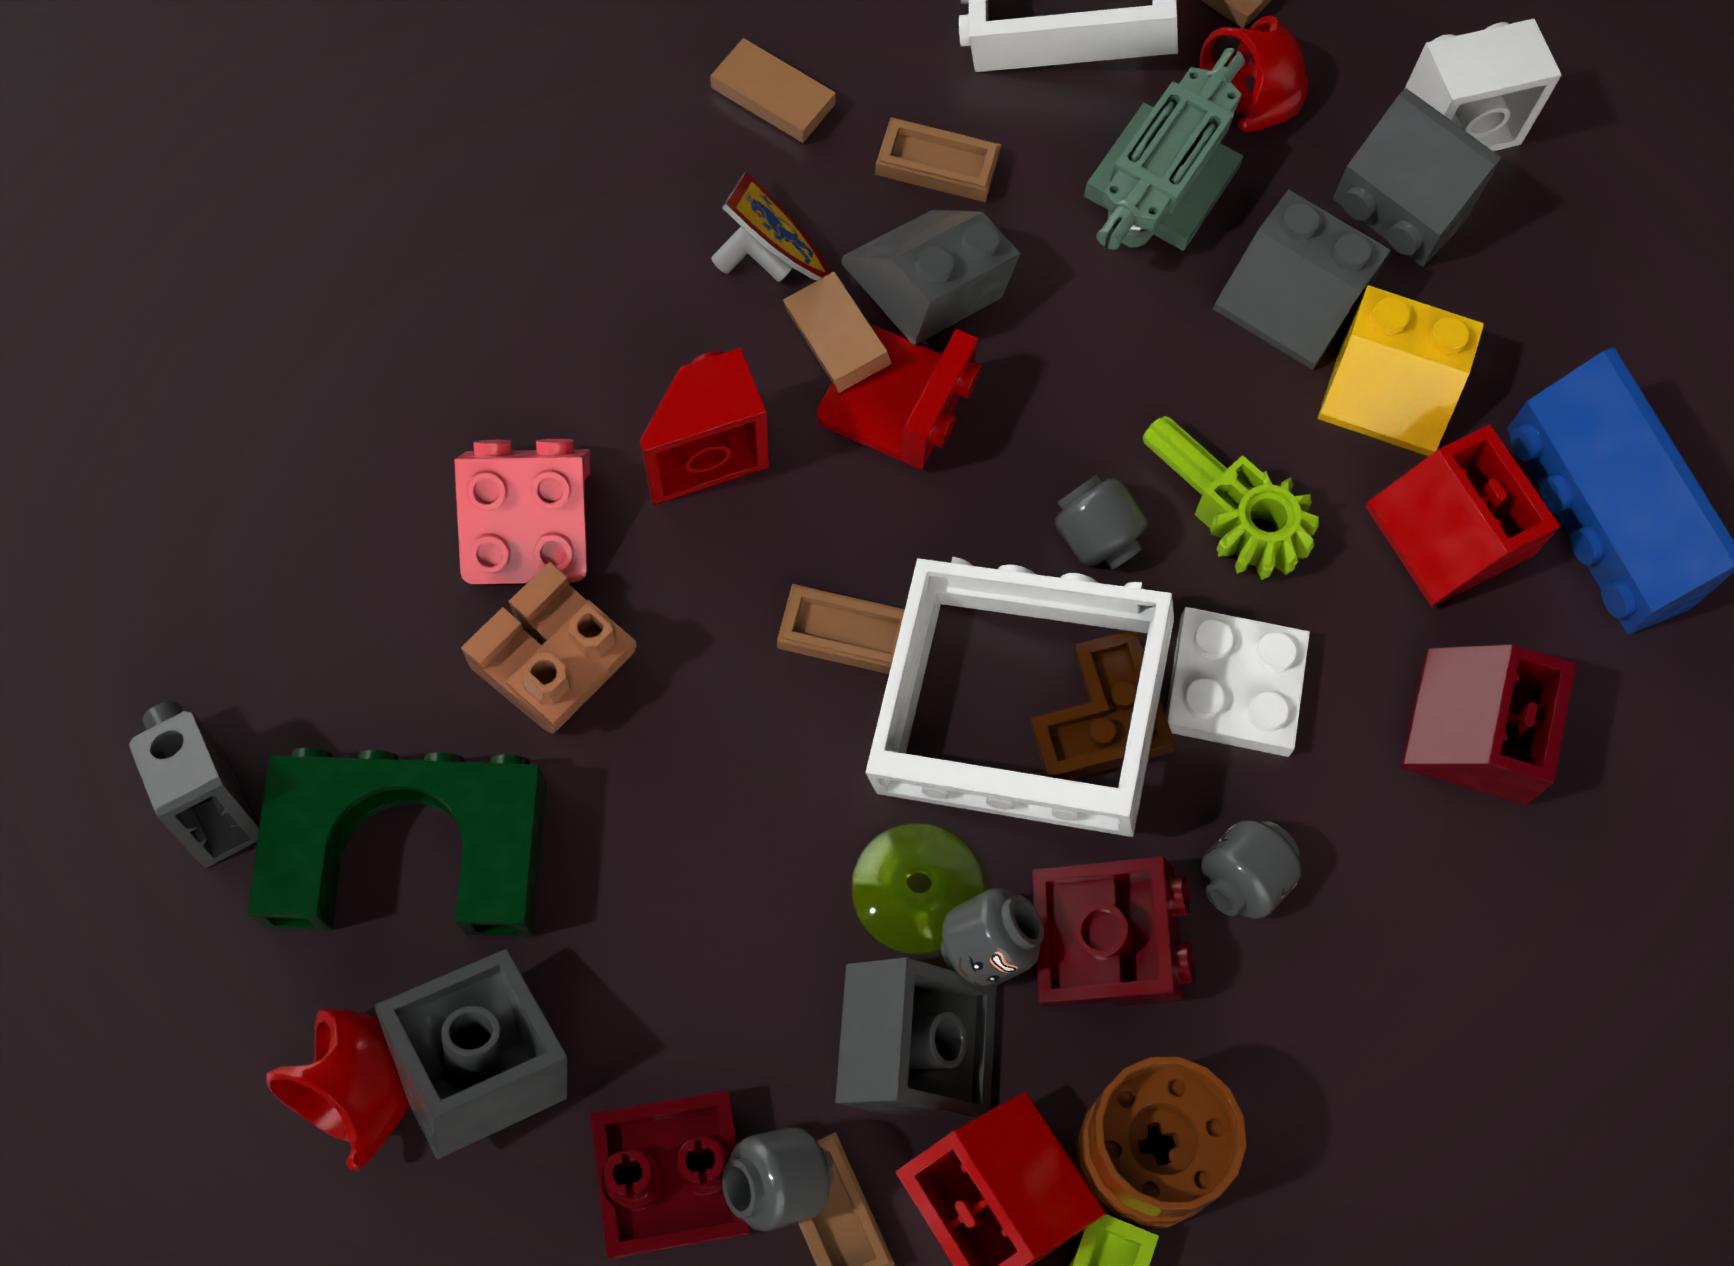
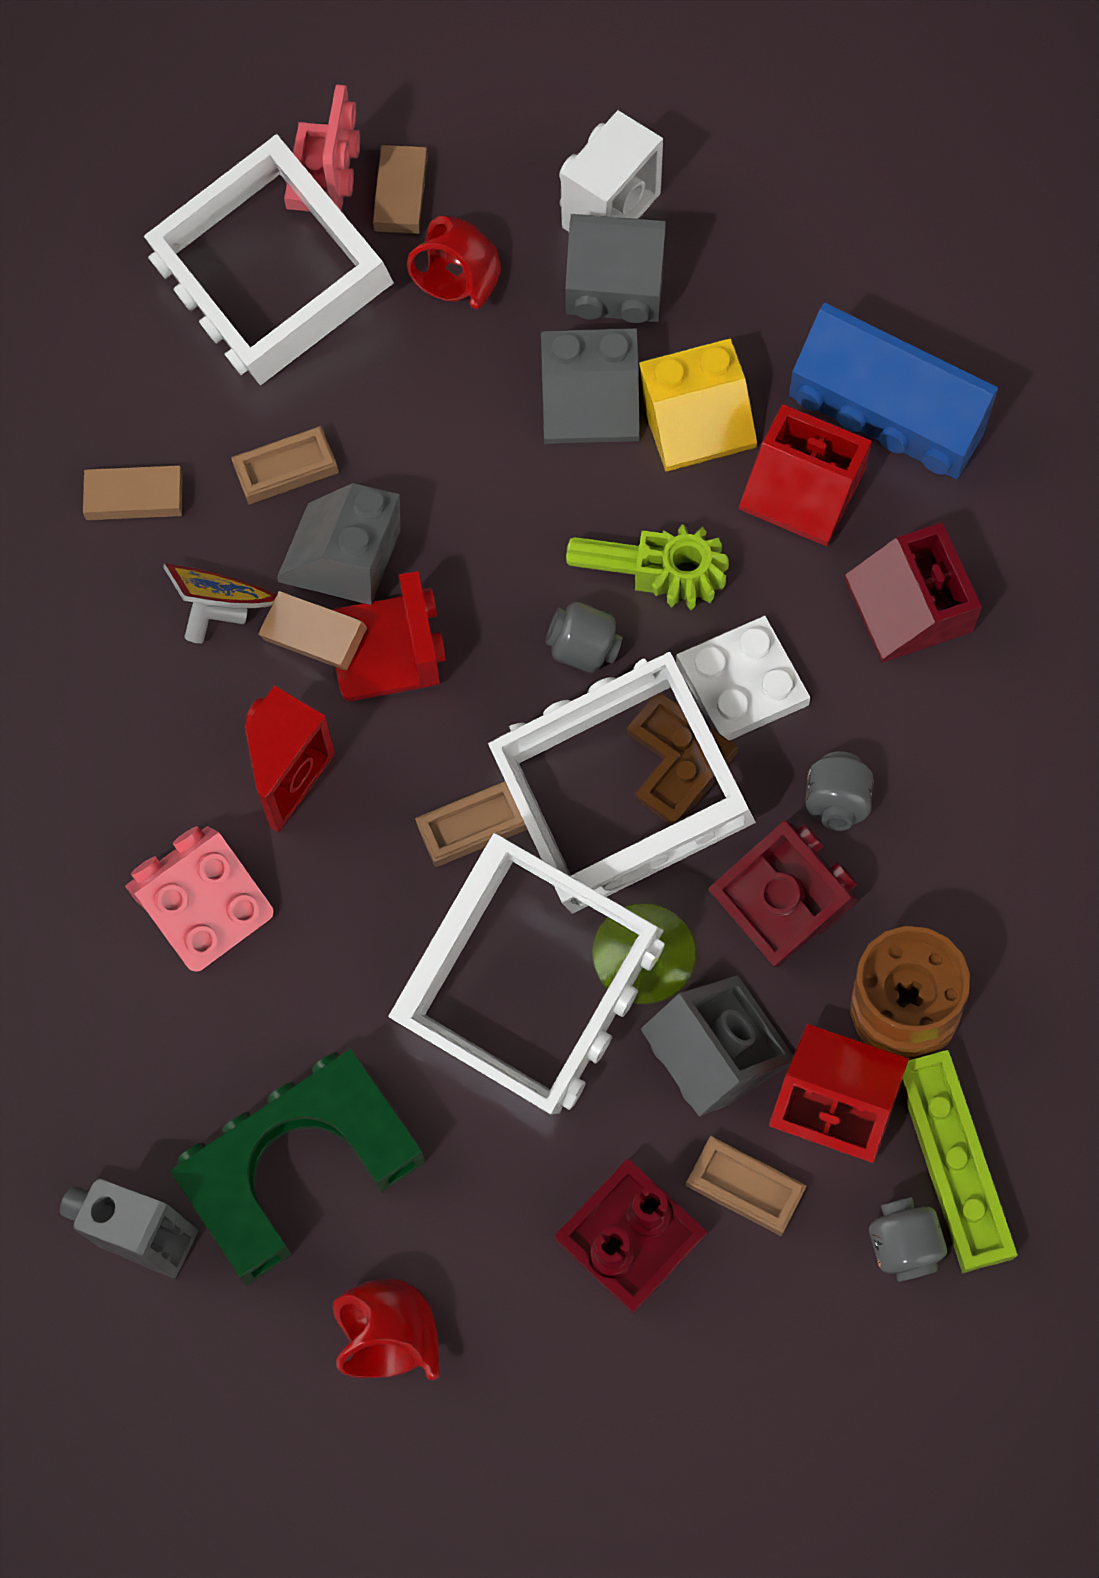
camera: 30 degrees left, 0 degrees up
(473, 1052) = (454, 1252): dark grey slope -> none
(550, 650) = (293, 974): nougat hips -> none
(725, 728) = (453, 936): none -> white window
(777, 1179) = (702, 1183): dark grey head -> none
(992, 937) = (716, 947): dark grey head -> none
(1170, 161) = (445, 362): sand green piece -> none

